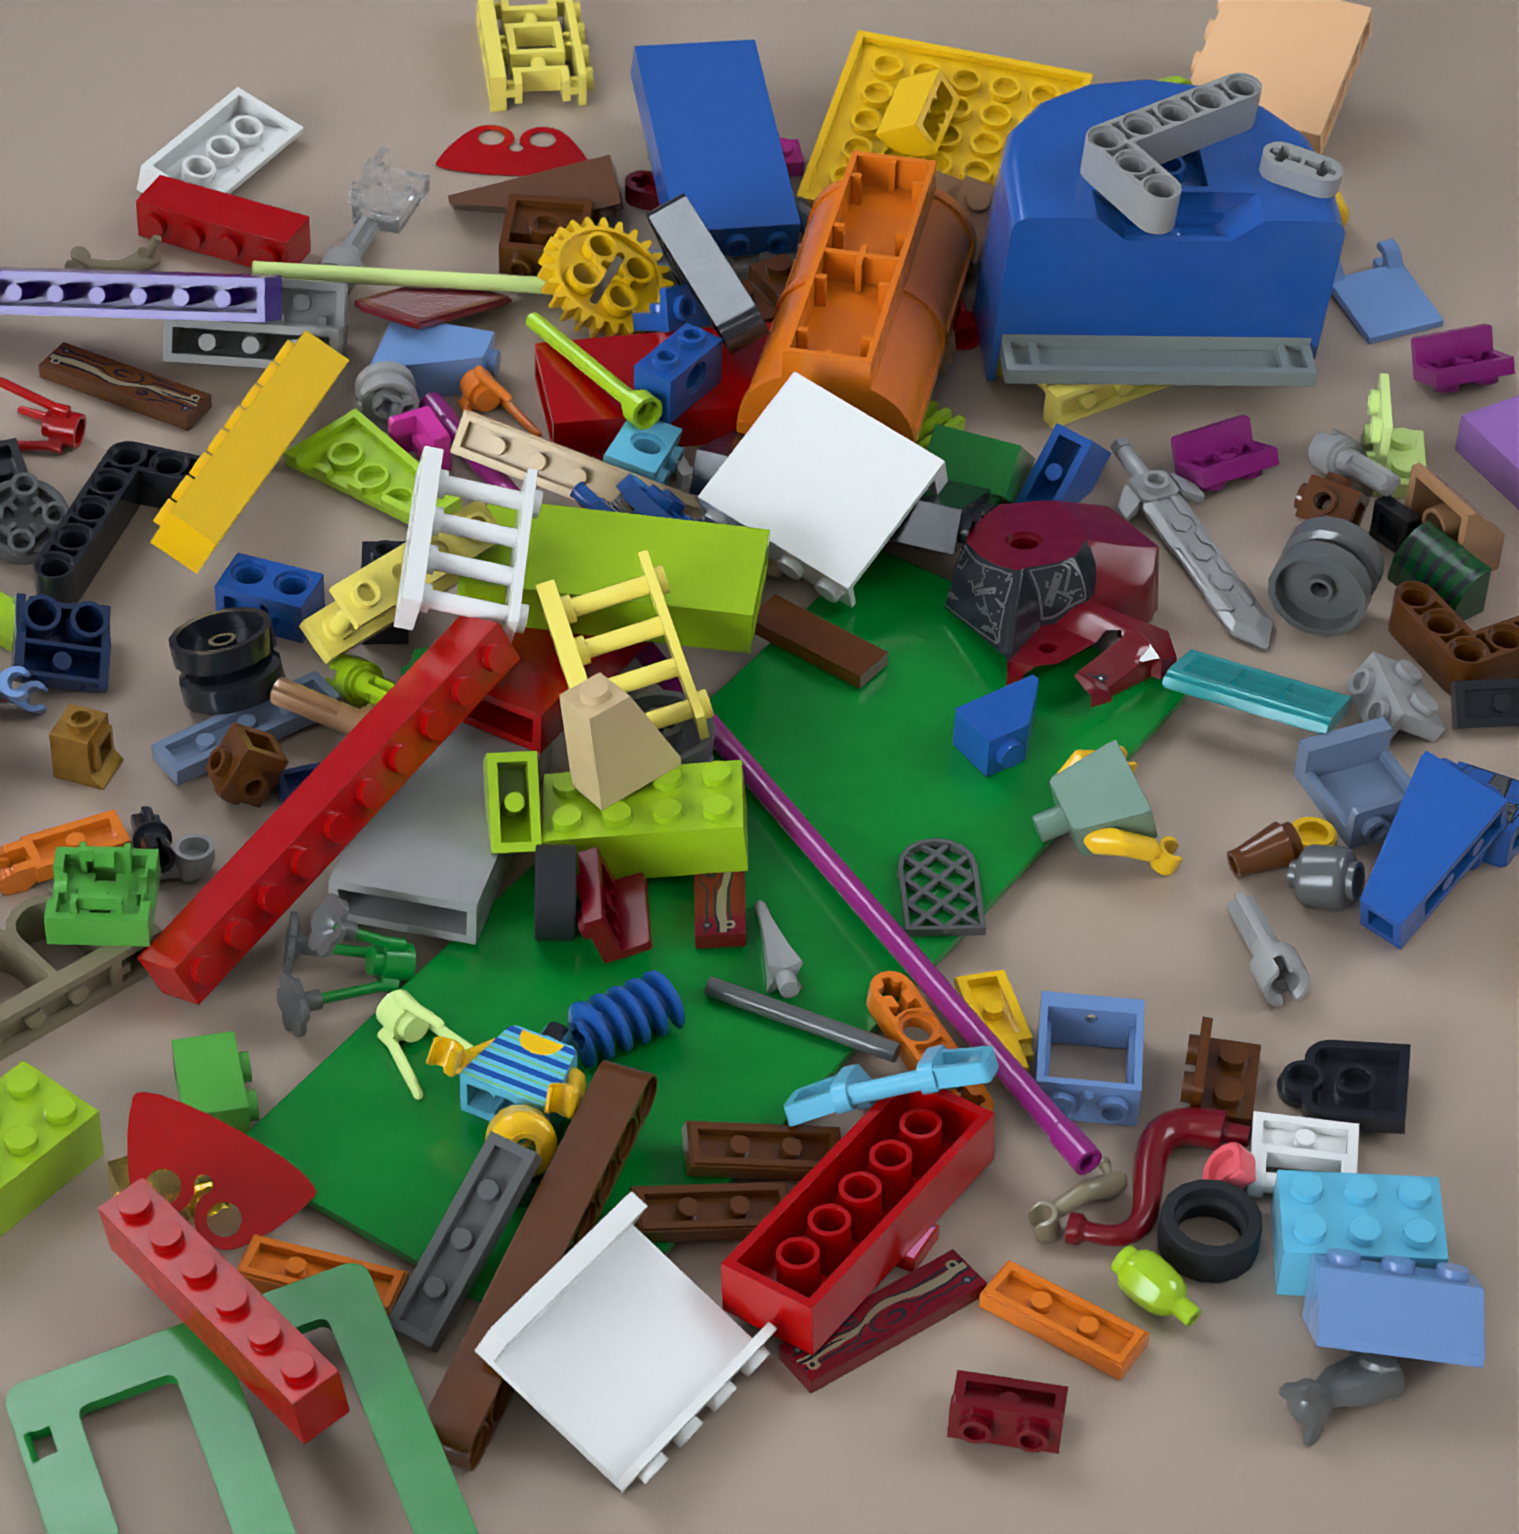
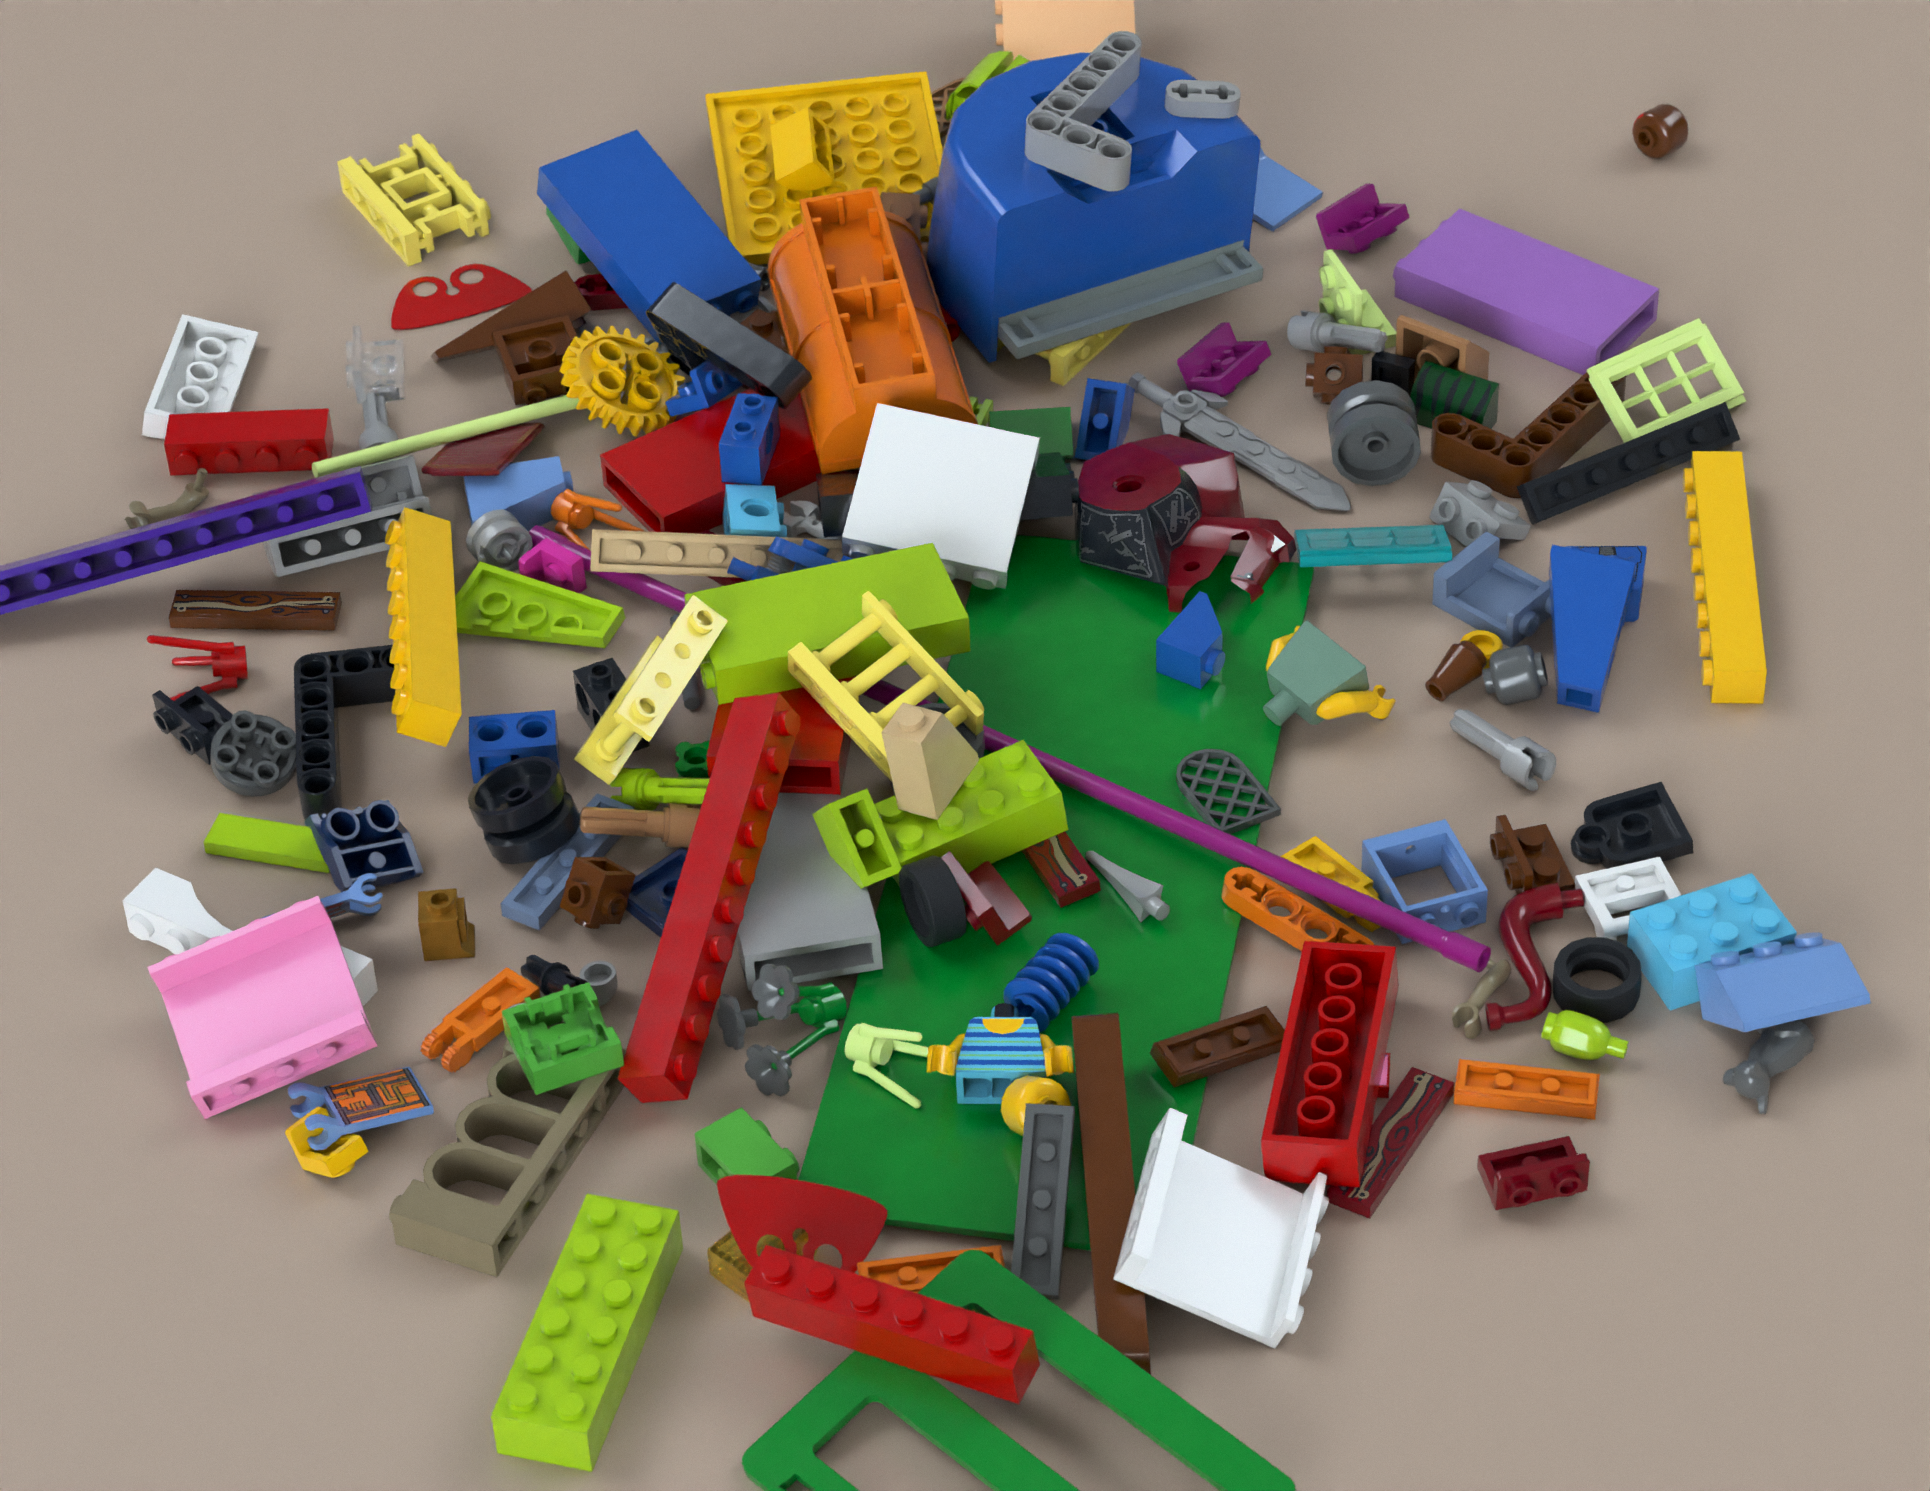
camera: 20 degrees left, 0 degrees up
(423, 558) = (683, 662): white fence -> none
(638, 406) = (734, 478): lime piece -> none
(705, 1210) = (1216, 1104): reddish brown tile -> none
(802, 1019) = (1184, 932): dark grey bar -> none
(819, 641) = (1013, 627): reddish brown tile -> none
(854, 1089) = (1336, 931): medium azure bar -> none
(1231, 1165) = (1583, 922): coral tile -> none

